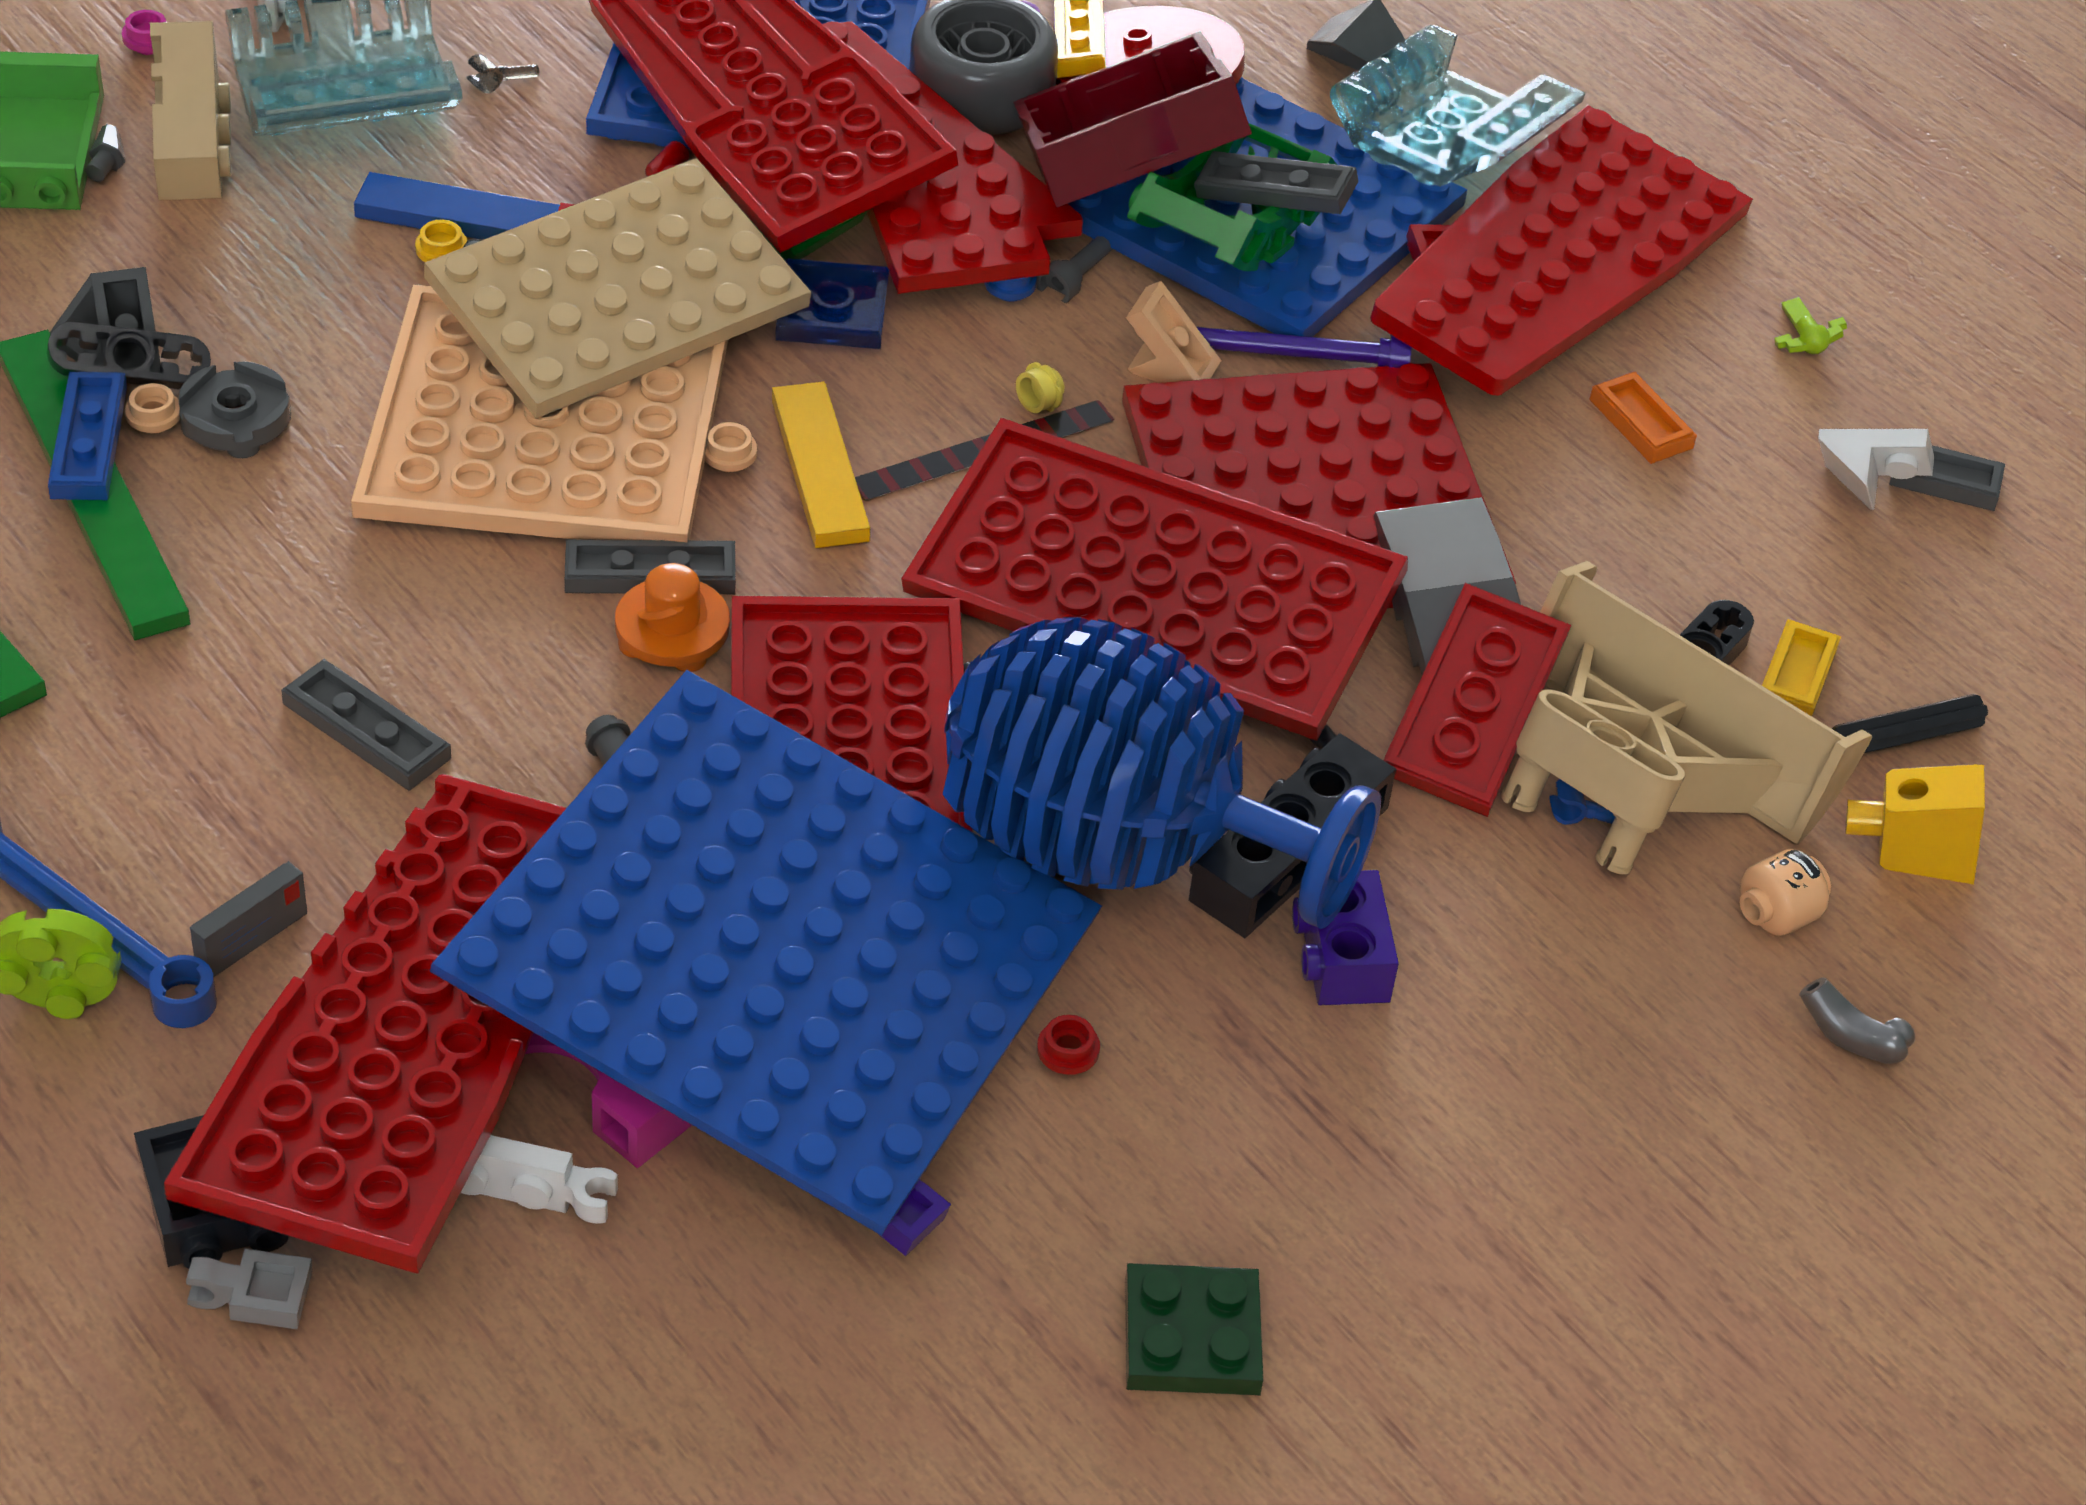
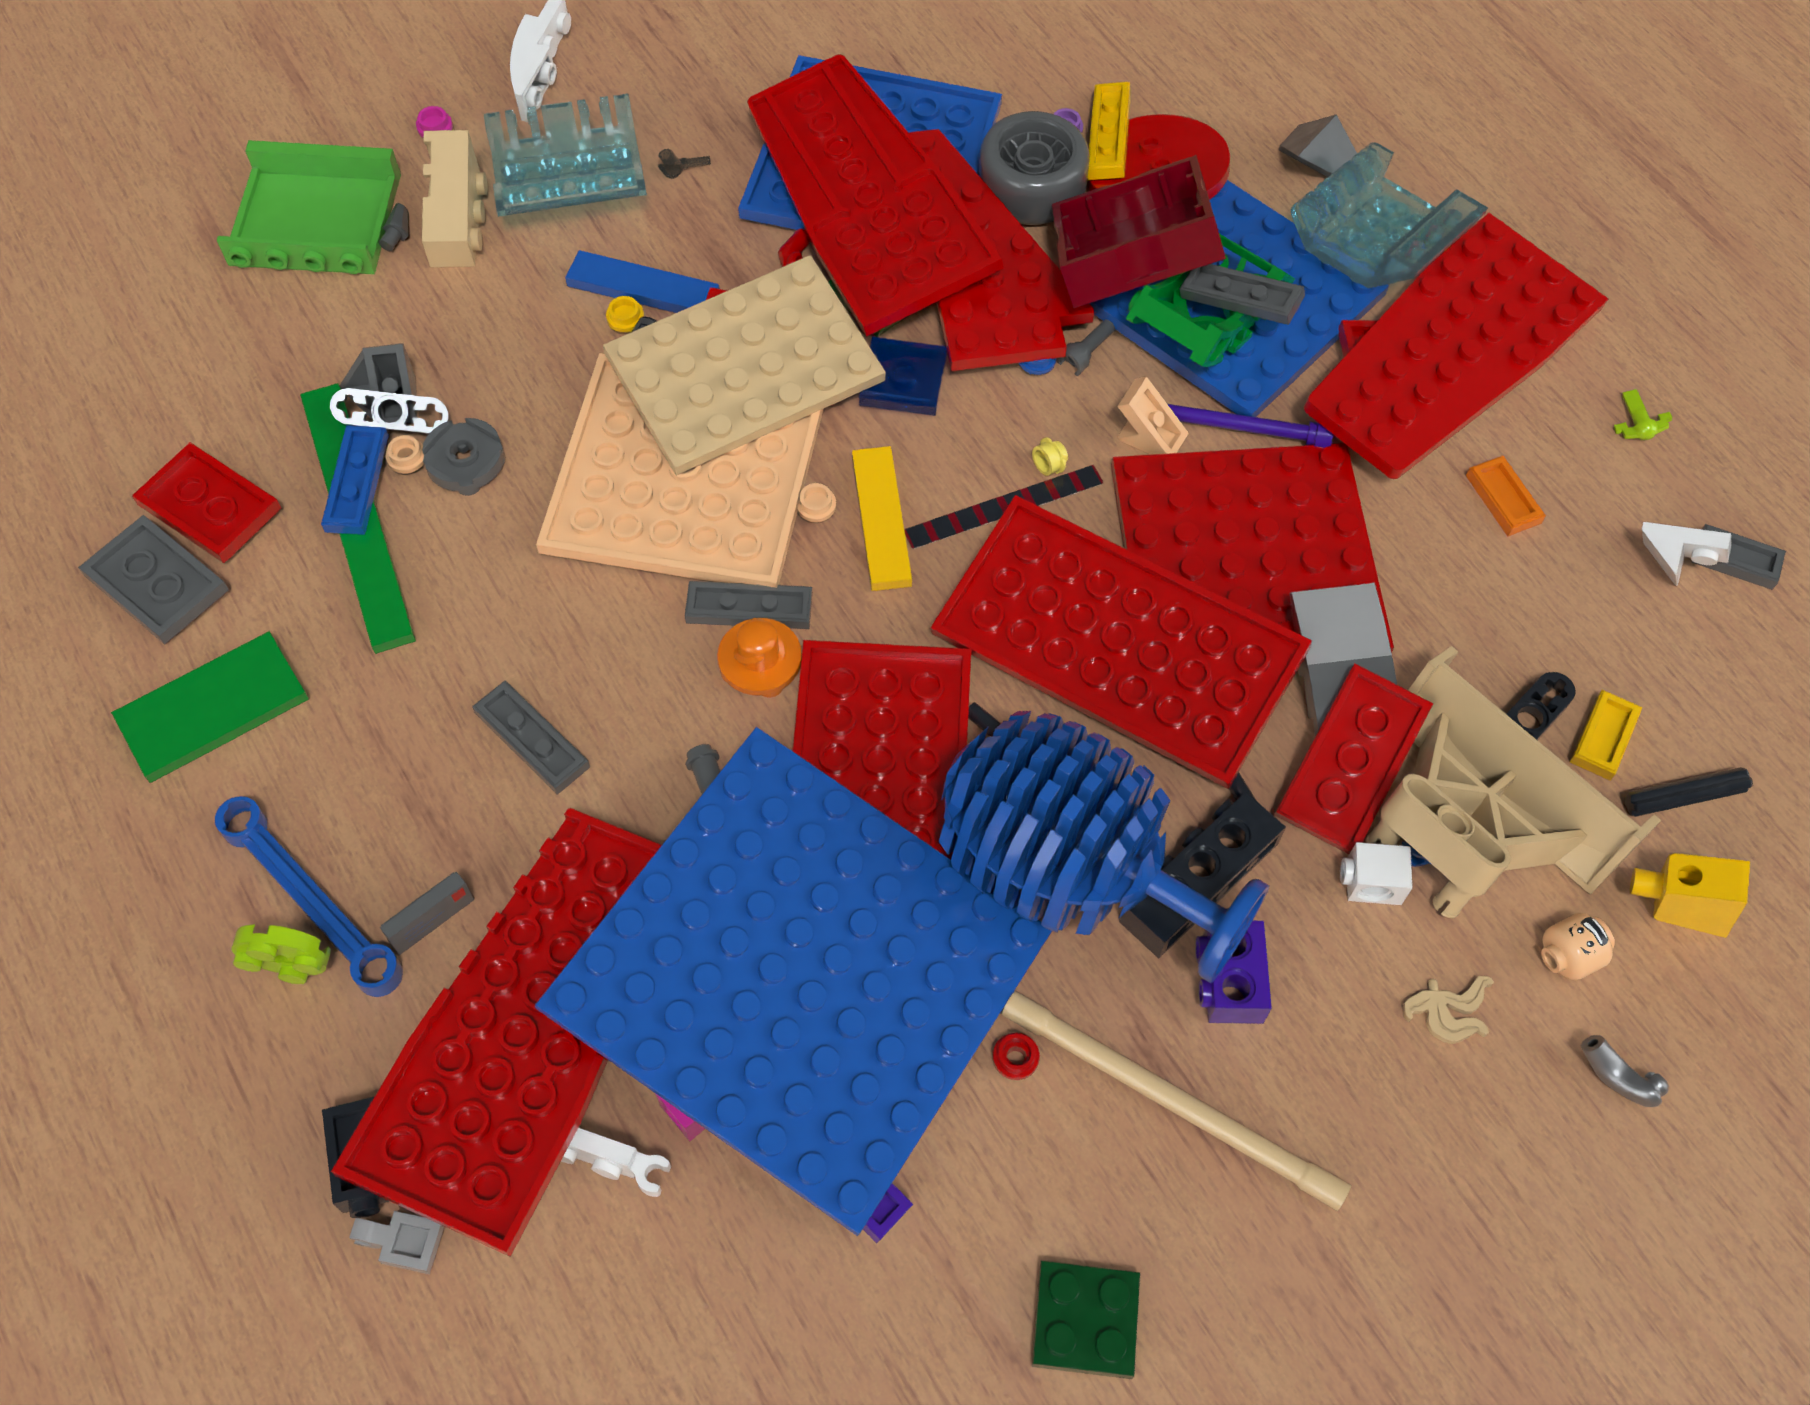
camera: 10 degrees right, 15 degrees up
(1462, 1156) = (1305, 1175): none -> tan piece
(1520, 824) = (1377, 873): none -> white brick
(1614, 973) = (1439, 1019): none -> tan piece

